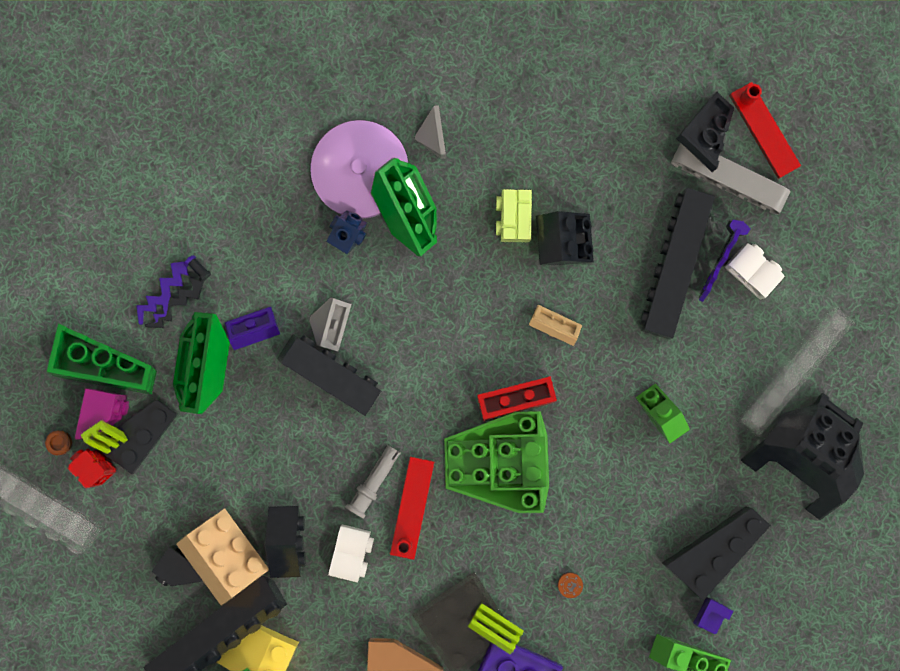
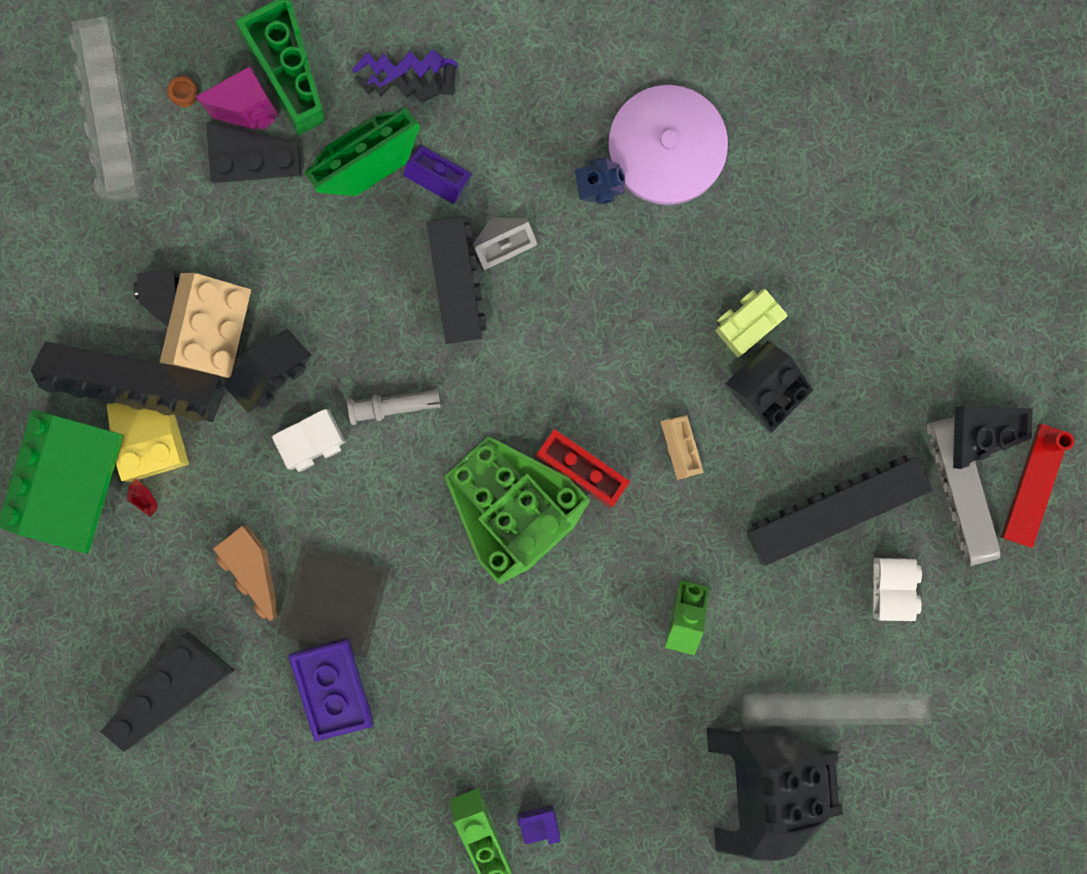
camera: 55 degrees right, 0 degrees up
(91, 467) = (184, 137): red brick -> none
(100, 440) = (215, 122): lime tile -> none
(405, 205) = (672, 211): green wedge -> none
(412, 508) = (399, 461): red piece -> none
(431, 134) = (758, 180): light grey slope -> none
(498, 625) = (359, 632): lime tile -> none
(570, 585) = (454, 668): dark orange tile -> none
(715, 553) = (602, 779): black wedge -> none
(736, 228) = (920, 537): dark purple piece -> none

